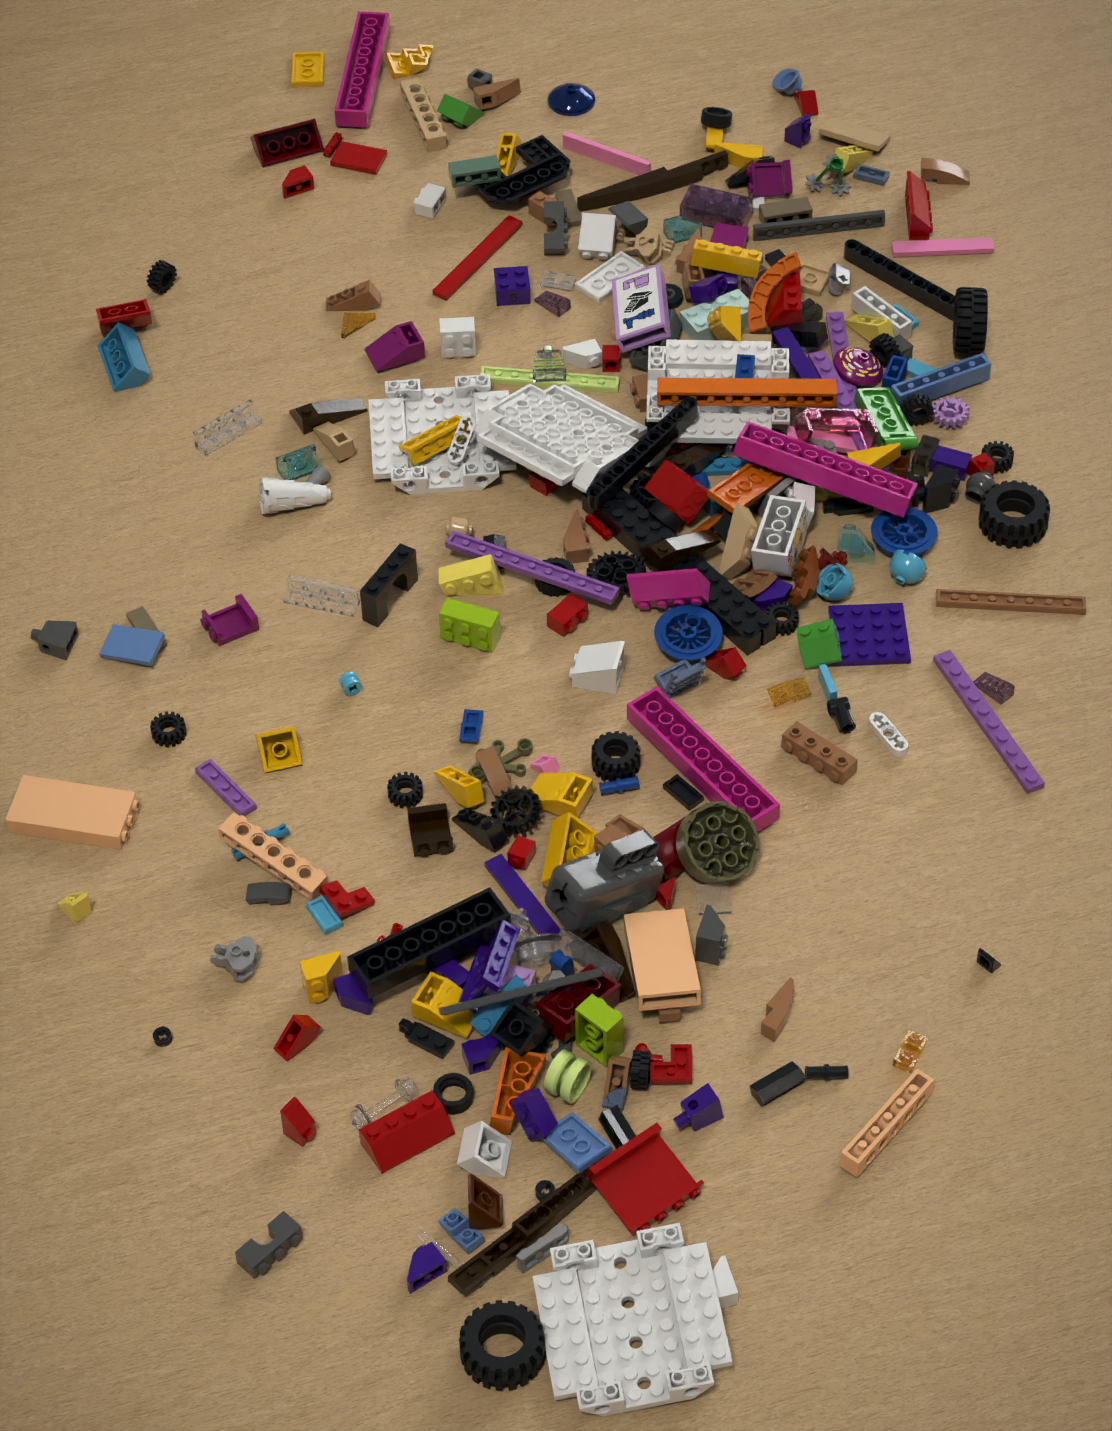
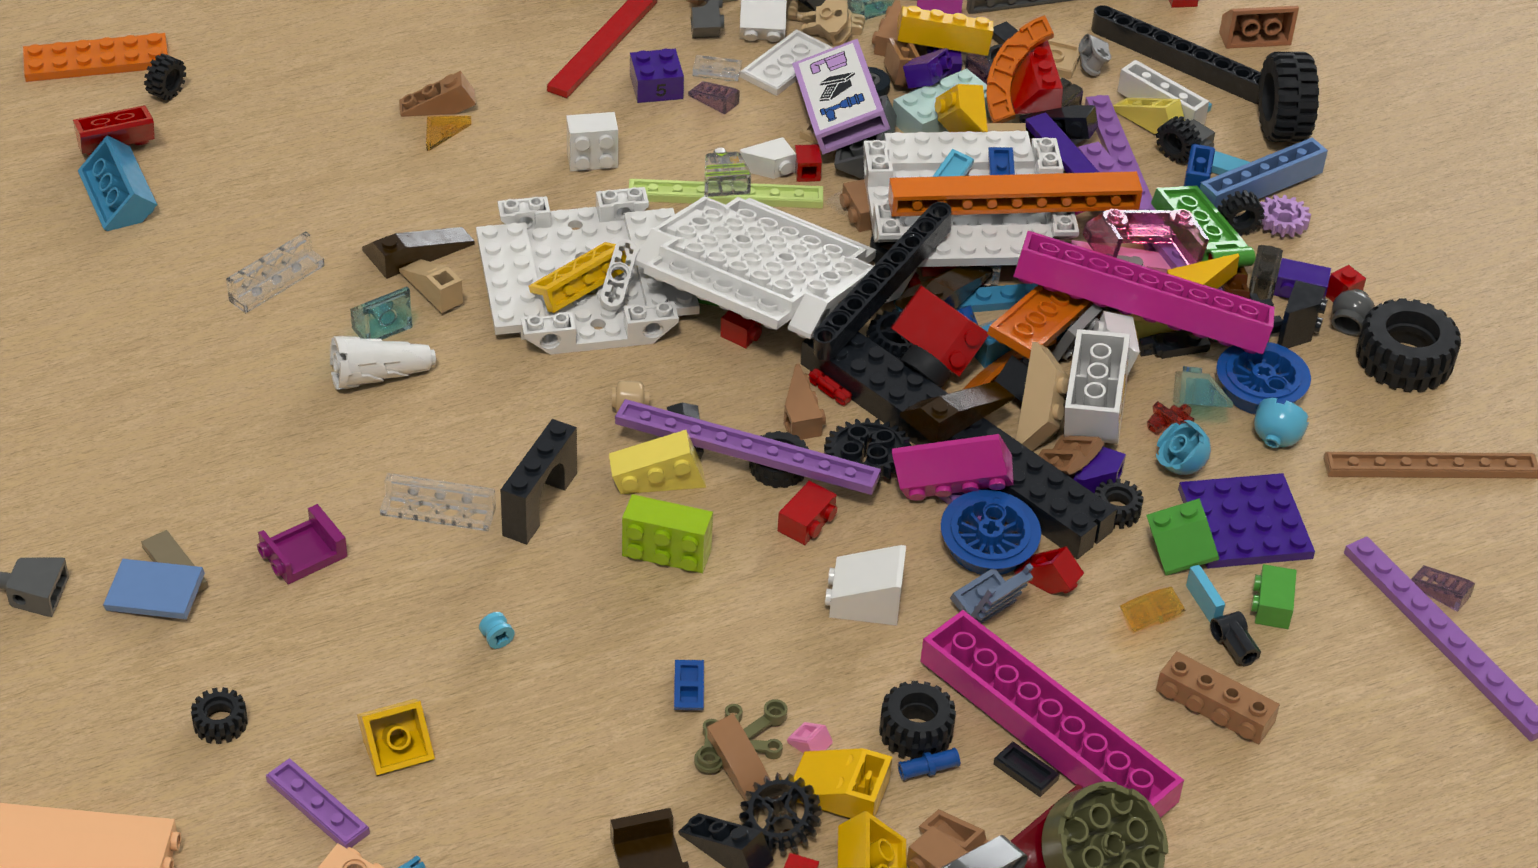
camera: 10 degrees left, 5 degrees down
(113, 257) = (92, 56): none -> orange plate
(319, 475) = (416, 332): light grey cone -> none
(396, 347) = (507, 158): magenta slope -> none
(405, 781) = (601, 804): black tyre -> none
(462, 786) = (688, 779): yellow slope -> none
(710, 368) = (955, 165): none -> medium azure tile
(806, 575) = (1140, 440): dark orange slope -> none
(858, 366) = (1148, 158): magenta dish -> none
(874, 688) = (1274, 596): none -> bright green brick
(889, 742) = (1298, 646): white beam -> none
(942, 247) = (1200, 14): bright pink tile -> none
(968, 260) = (1258, 26): none -> nougat slope
(1001, 450) = (1371, 268): black tyre -> none

